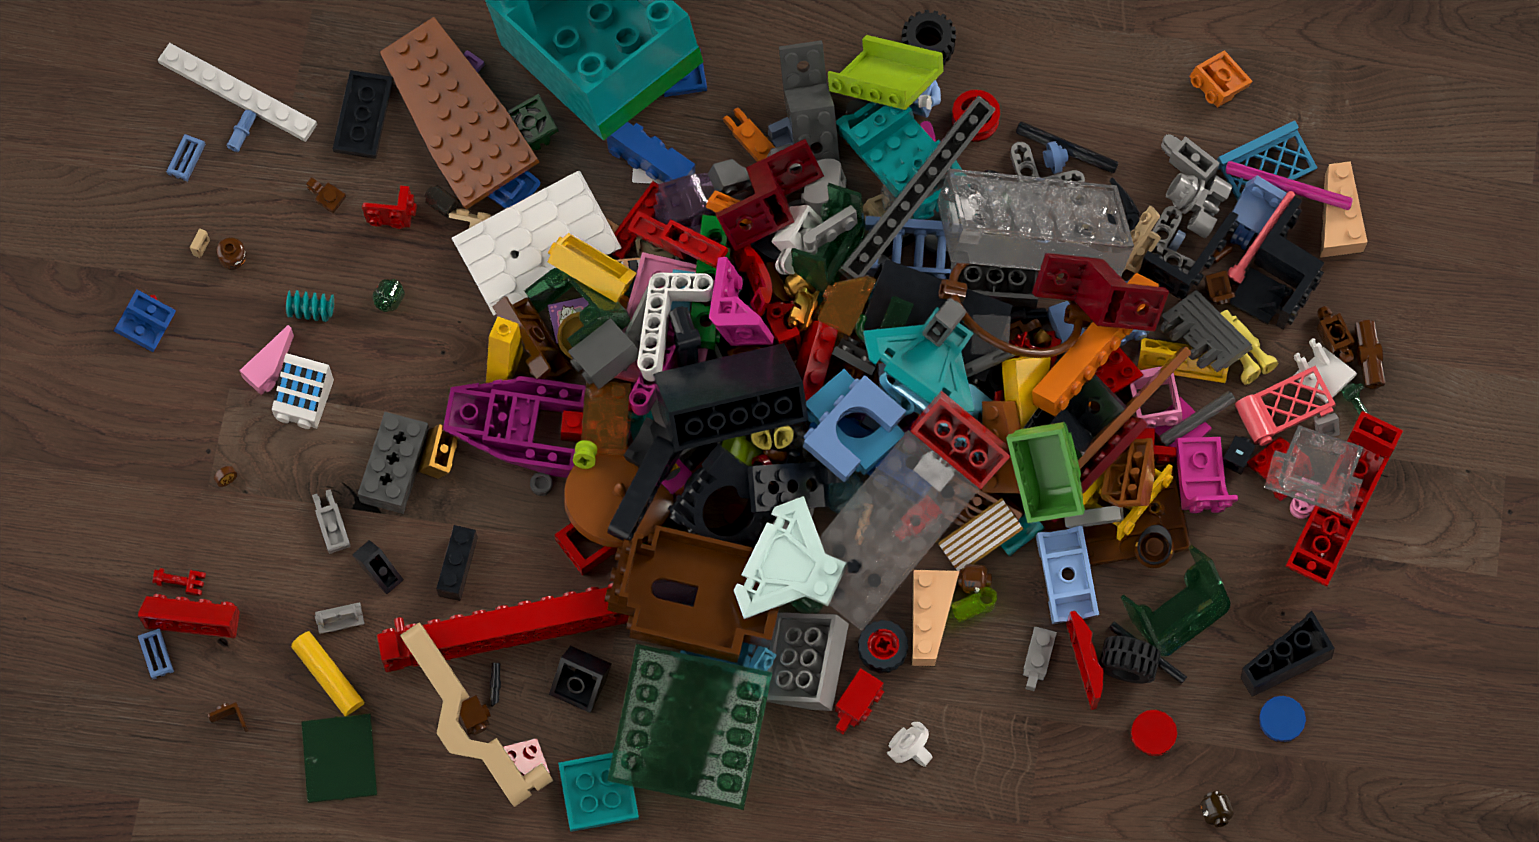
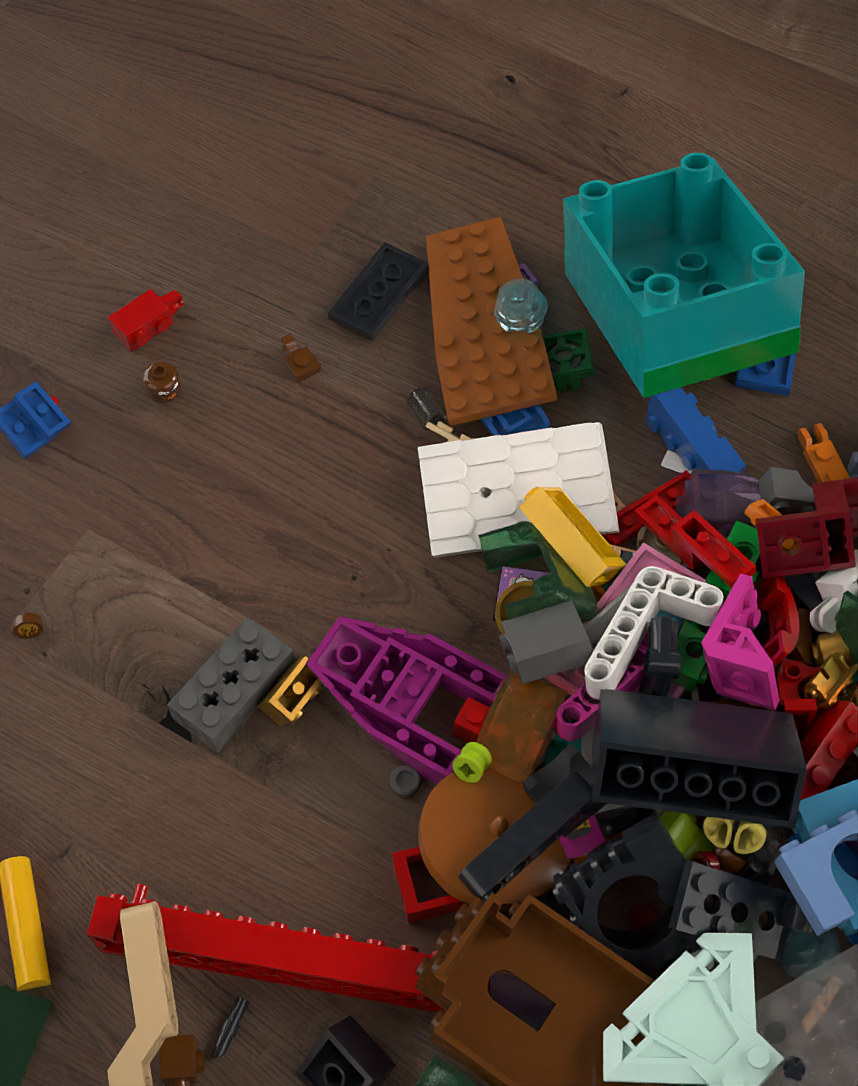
camera: 25 degrees right, 10 degrees down
(179, 173) = (169, 275): medium blue tile -> none
(190, 204) = (145, 318): none -> red hinge
(199, 243) = (134, 361): tan tile -> none
(237, 92) = (255, 229): white plate -> none
(241, 131) = (238, 265): medium blue axle -> none
(266, 366) = (142, 515): bright pink slope -> none
(302, 391) = (164, 559): white slope -> none
(309, 306) = (220, 470): teal piece -> none
(331, 524) = (123, 730): light grey hinge -> none
(339, 618) = (74, 855): light grey hinge -> none
(378, 566) = (152, 808): black slope -> none
(388, 295) = (317, 488): clear green head -> none
(396, 216) = (366, 403): red bracket -> none
(457, 563) = (252, 841): black brick -> none
(484, 97) = (520, 306): none -> clear light blue cone
(503, 350) = (423, 593): yellow slope -> none
(546, 358) = (473, 622): reddish brown piece -> none

